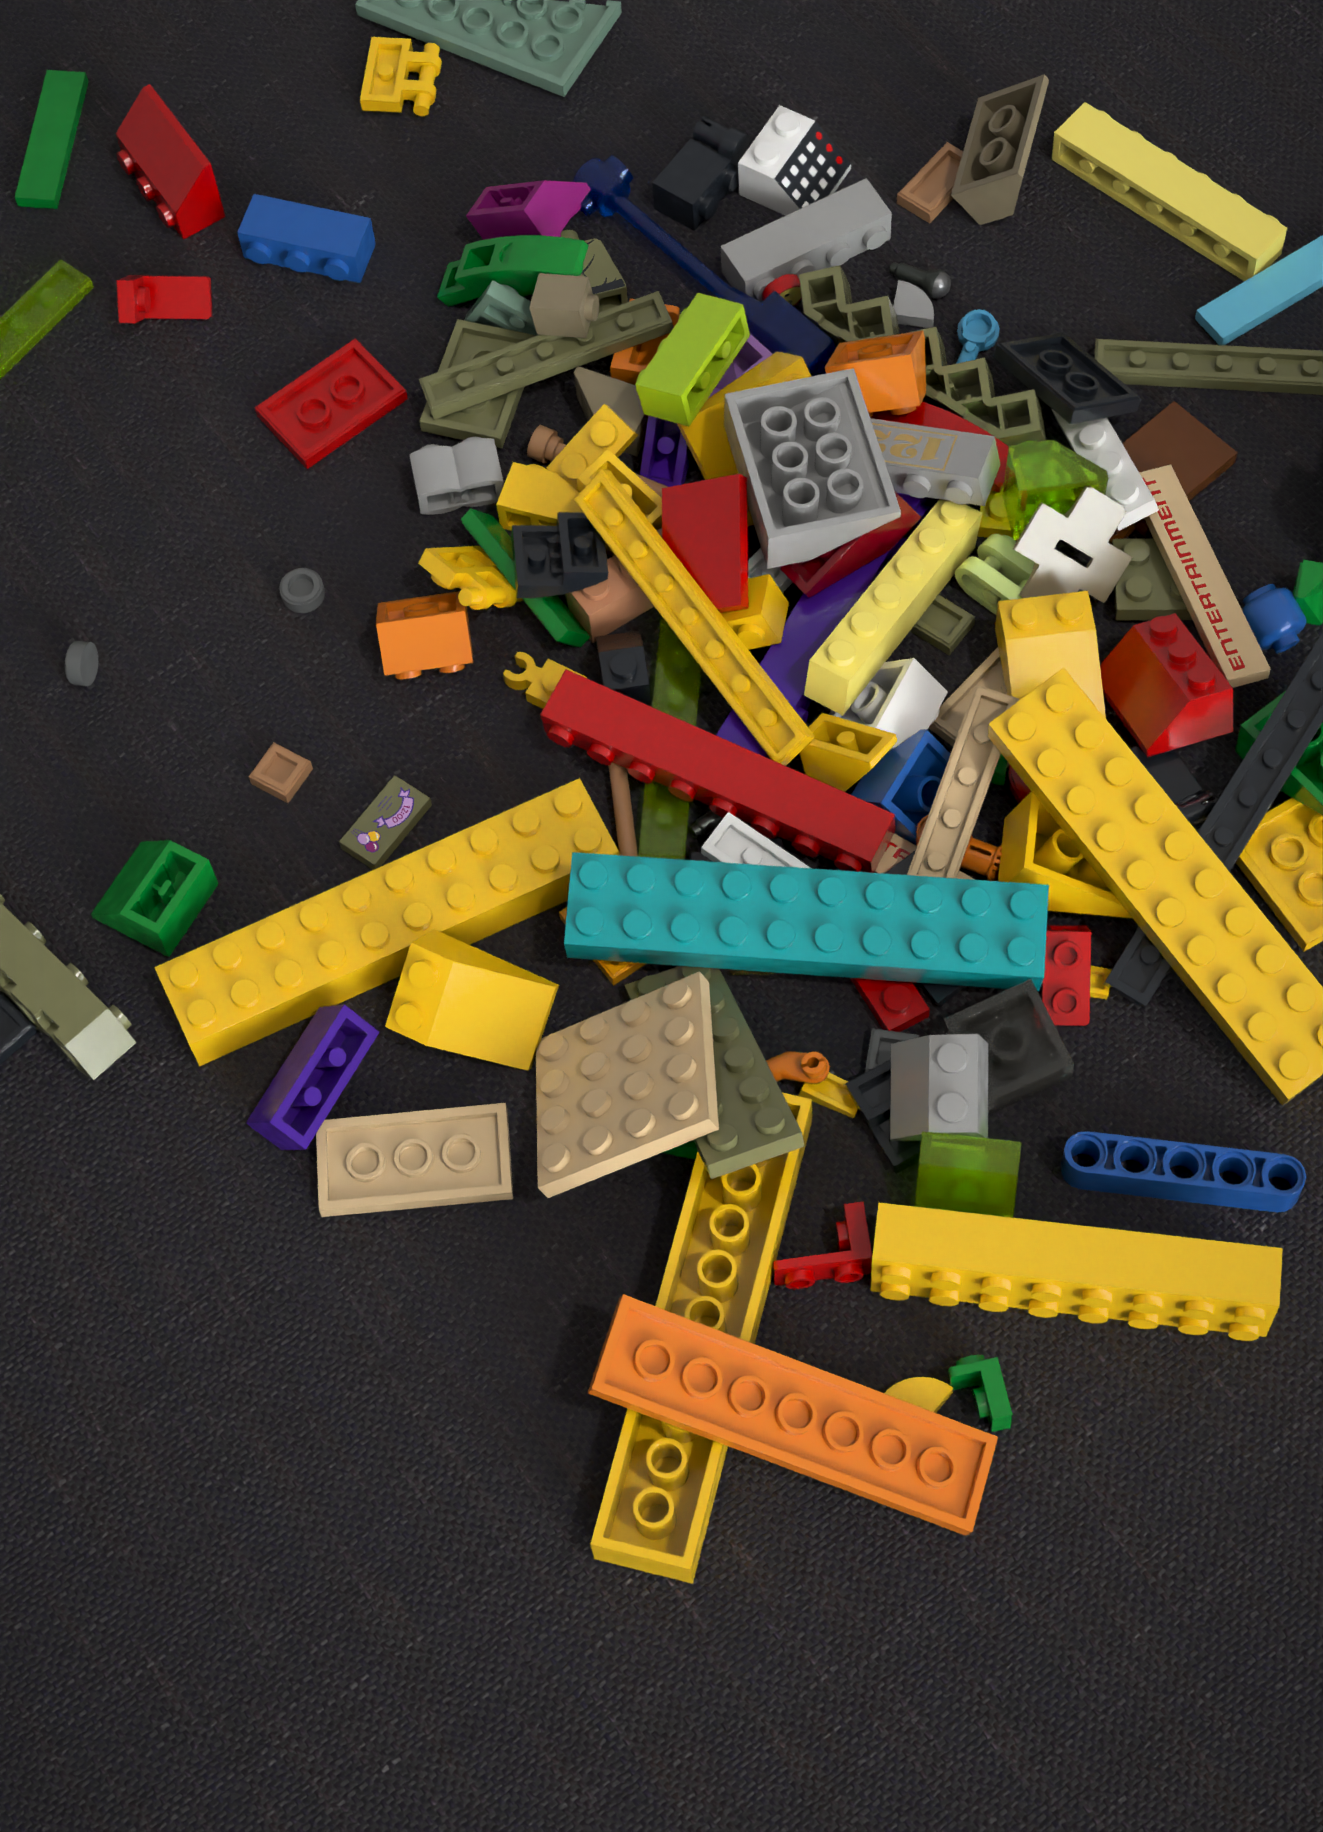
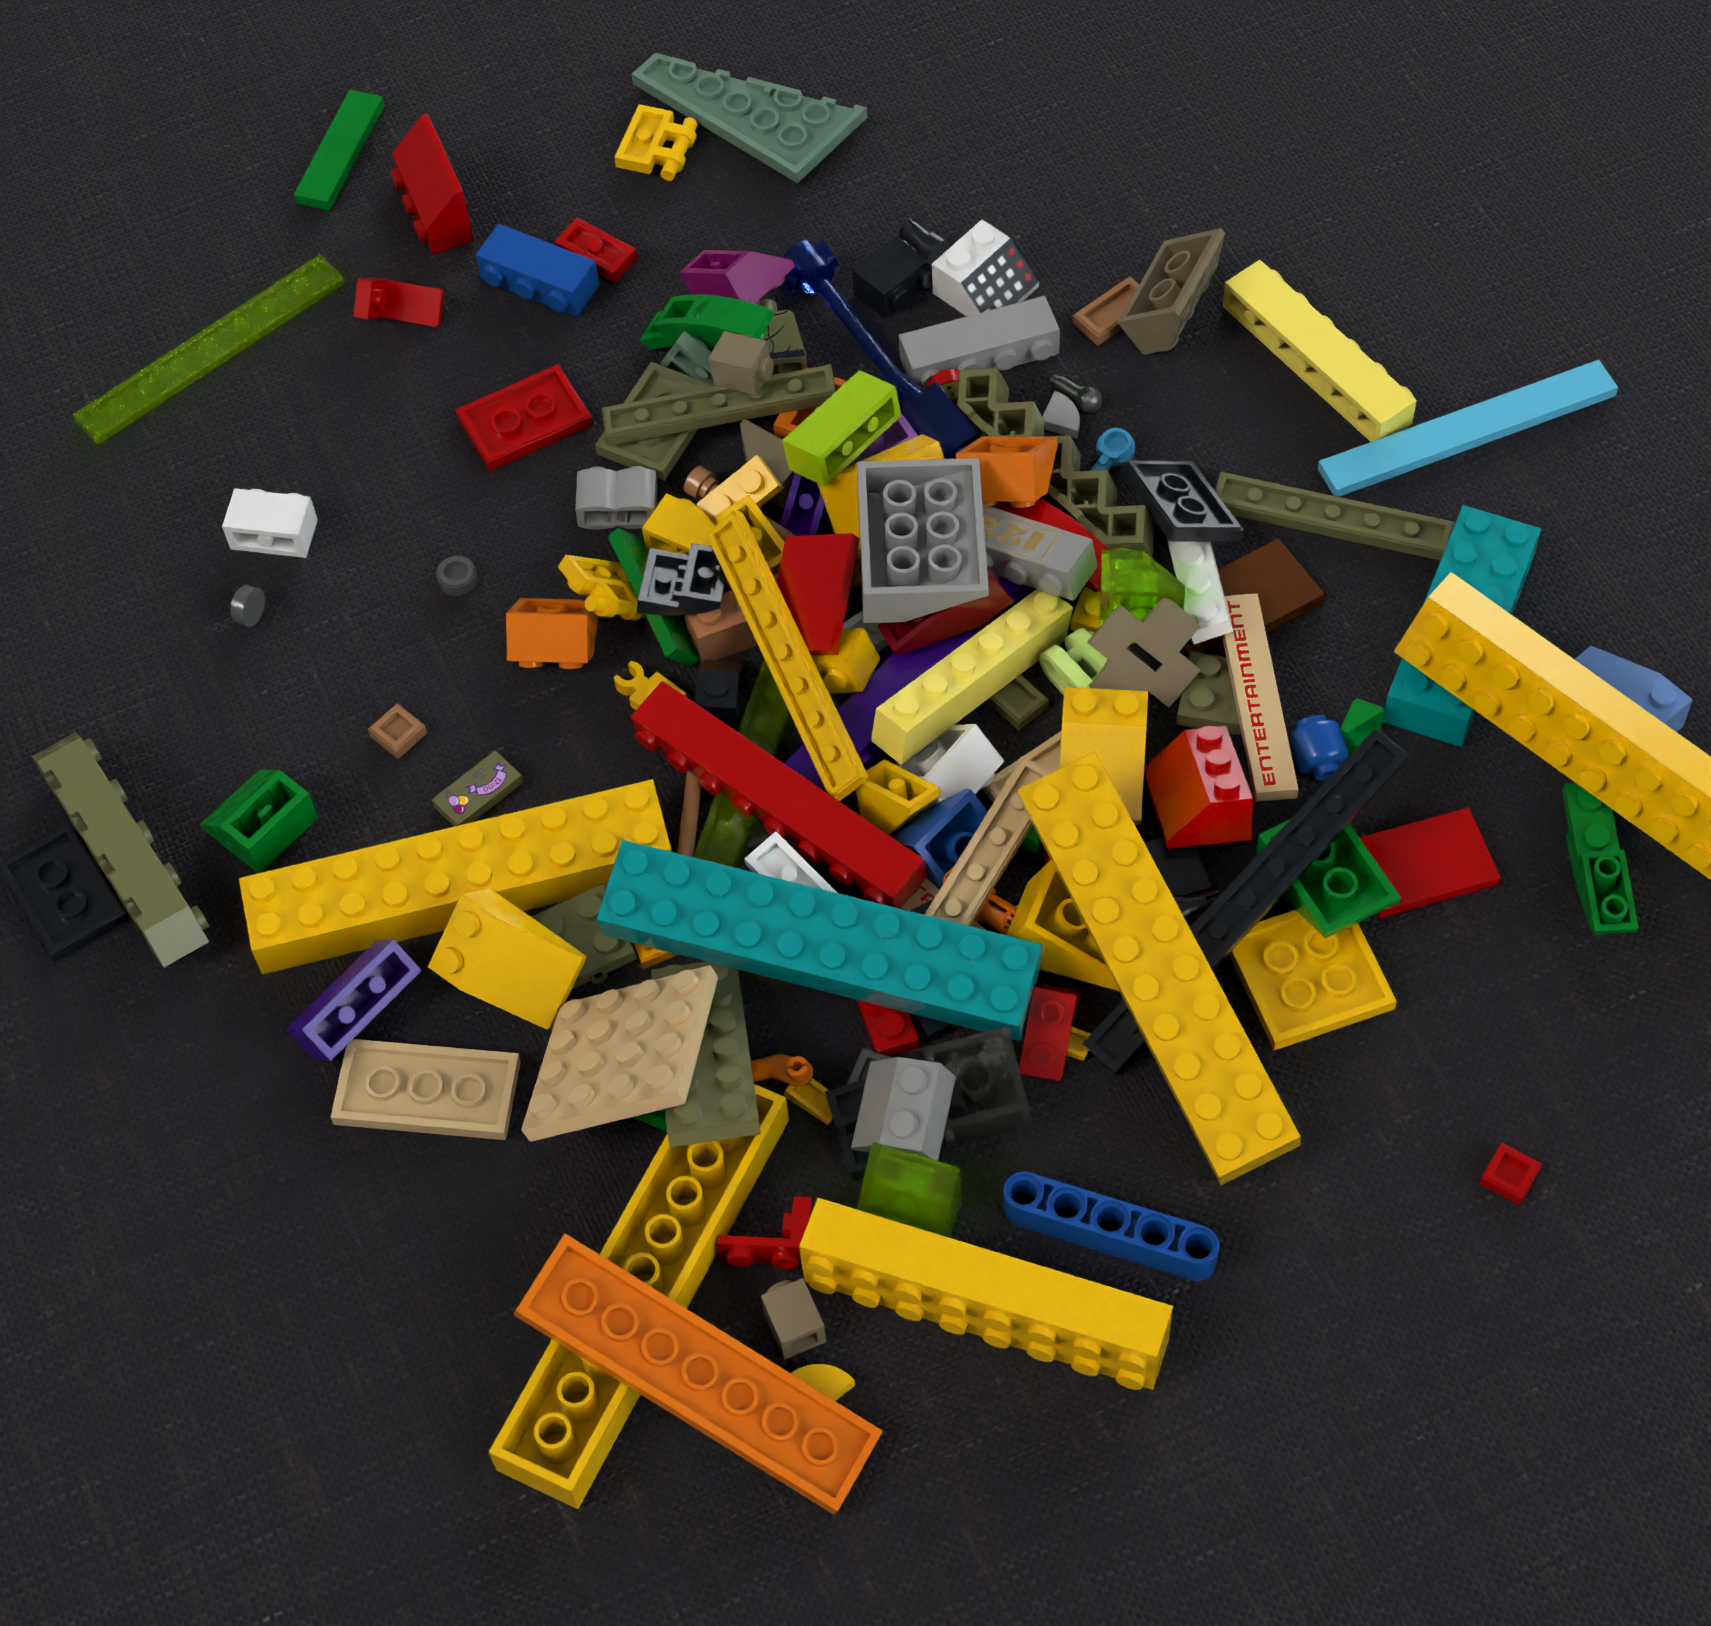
camera: 10 degrees right, 5 degrees down
(83, 566) = (270, 522): none -> white brick
(362, 199) = (610, 254): none -> red plate
(540, 949) = (577, 925): none -> olive plate
(872, 1333) = (793, 1317): none -> dark tan brick
(991, 1396) = (884, 1382): green bracket -> none

